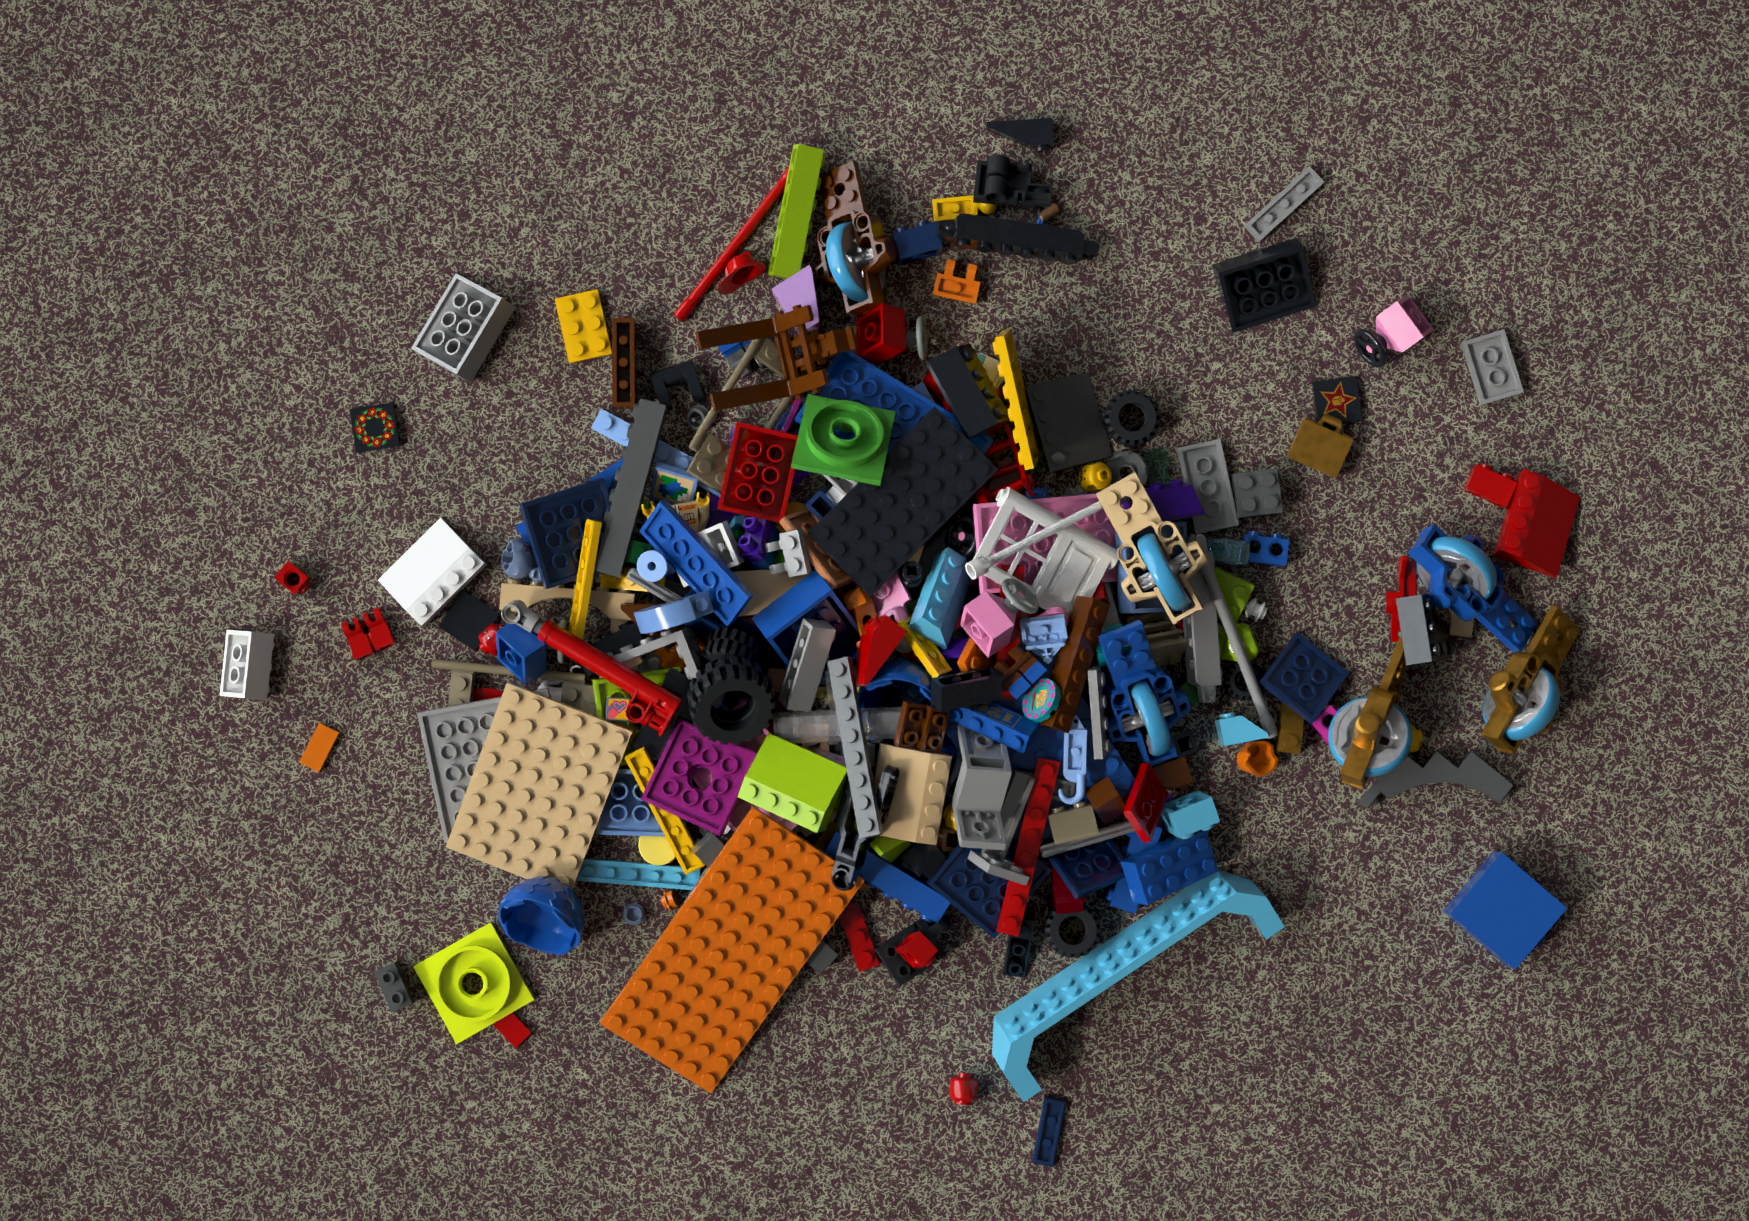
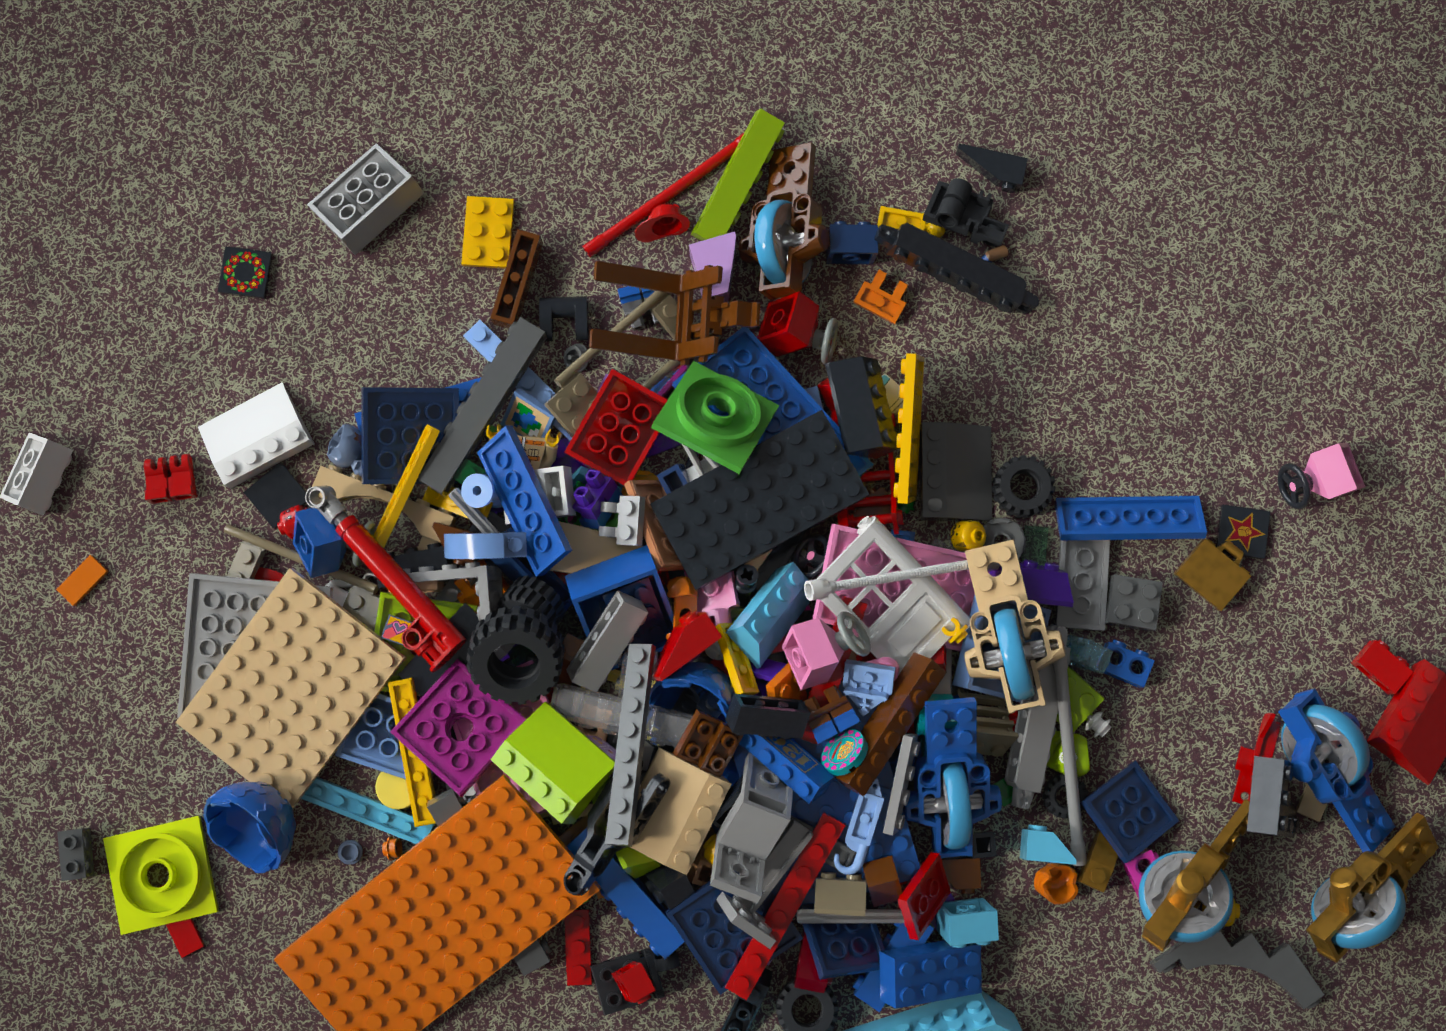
camera: 20 degrees right, 5 degrees down
(286, 572) = (105, 393): red brick -> none
(1110, 567) = (958, 634): none -> yellow plate
(1233, 418) = (1130, 518): none -> blue plate
(1264, 284) = (1200, 390): black slope -> none
(1284, 204) = (1242, 314): light grey plate -> none
(1492, 367) = (1416, 544): light grey plate -> none

